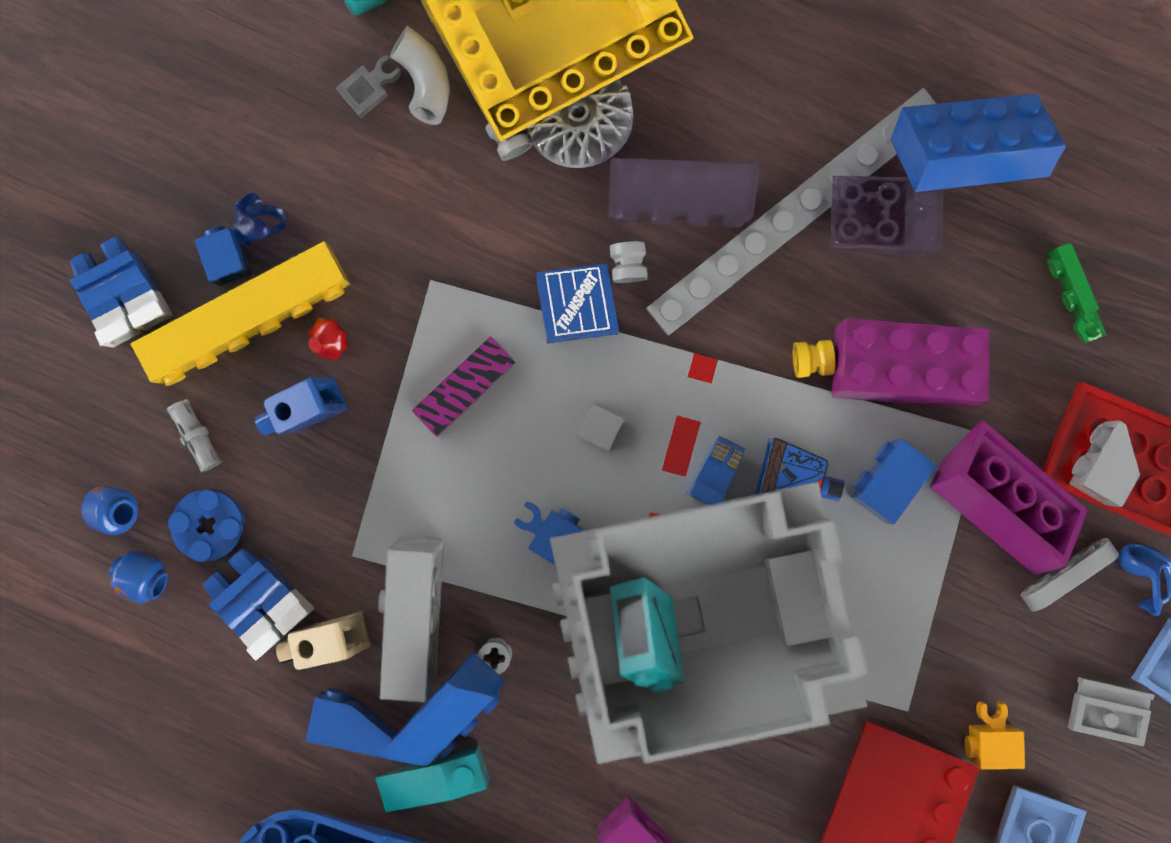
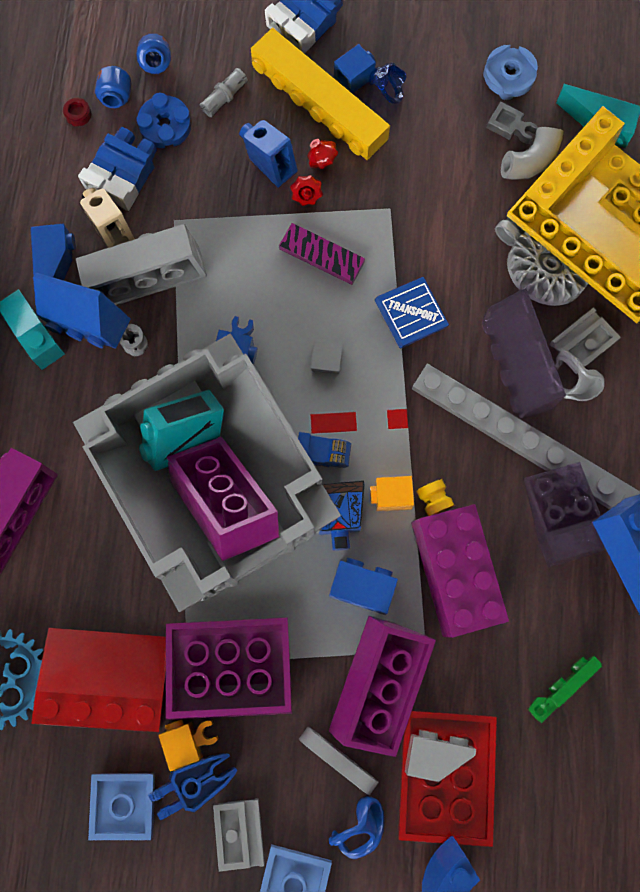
camera: 75 degrees right, 10 degrees down
(153, 633) = (77, 112): none -> dark red tile
(276, 48) = (505, 84): none -> medium blue plate
(370, 376) = (306, 190): none -> red piece
(628, 261) = (457, 338): light grey wheel -> none
(683, 108) = (586, 338): none -> light grey plate
(740, 126) = (589, 383): none -> light grey piece
(749, 612) = (223, 498): none -> magenta brick
(796, 408) = (392, 493): none -> light orange brick
(935, 667) = (228, 669): none -> magenta slope
(1046, 744) = (193, 785): none -> blue hinge

